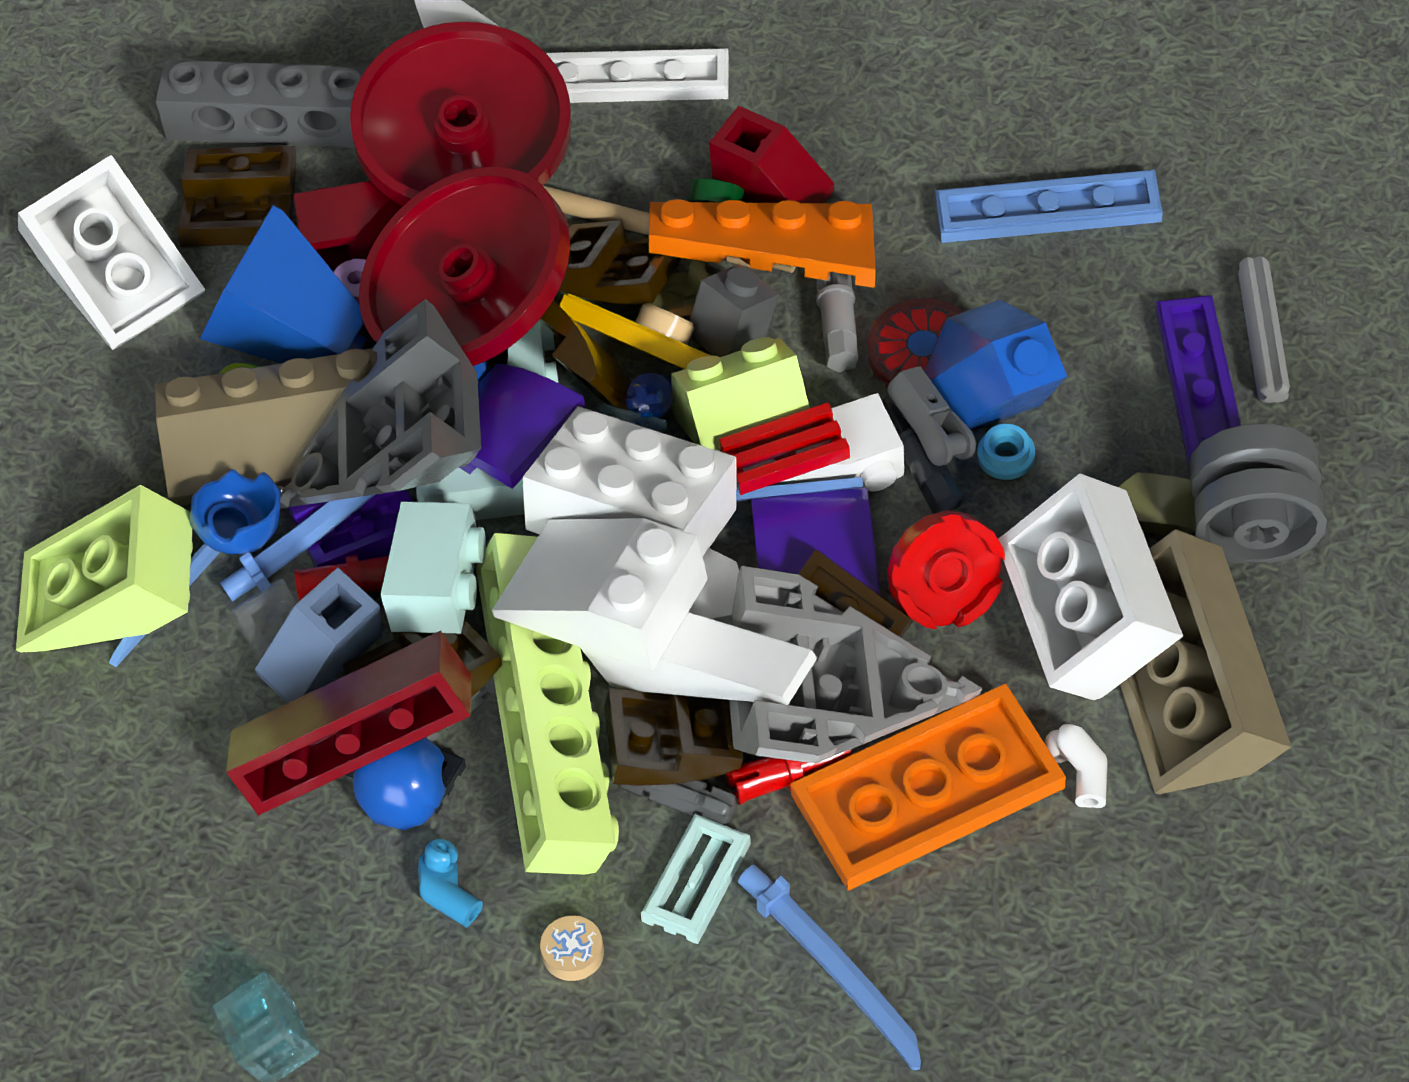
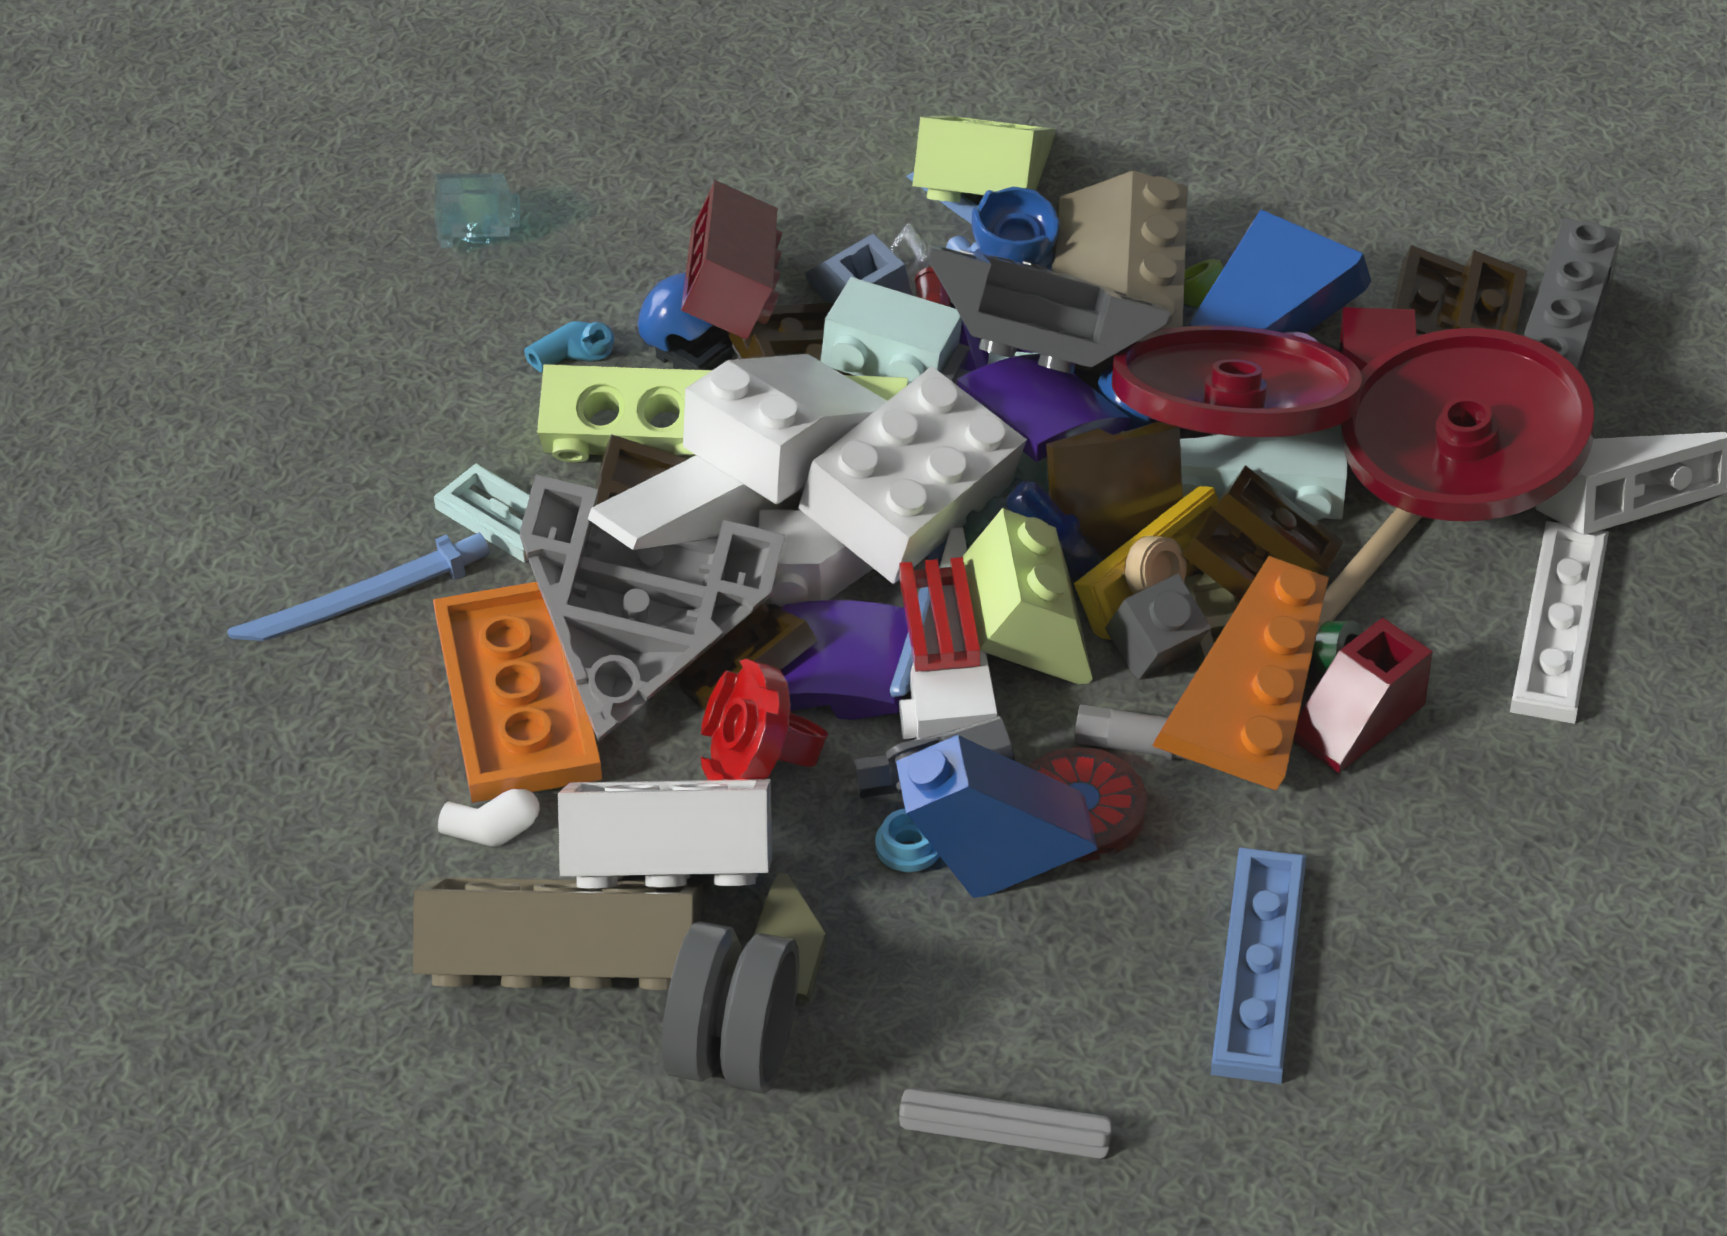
camera: 100 degrees right, 10 degrees down
(109, 253) = (1396, 190): white slope -> none
(572, 948) = (467, 418): tan tile -> none
(1197, 369) = (932, 1043): dark purple tile -> none

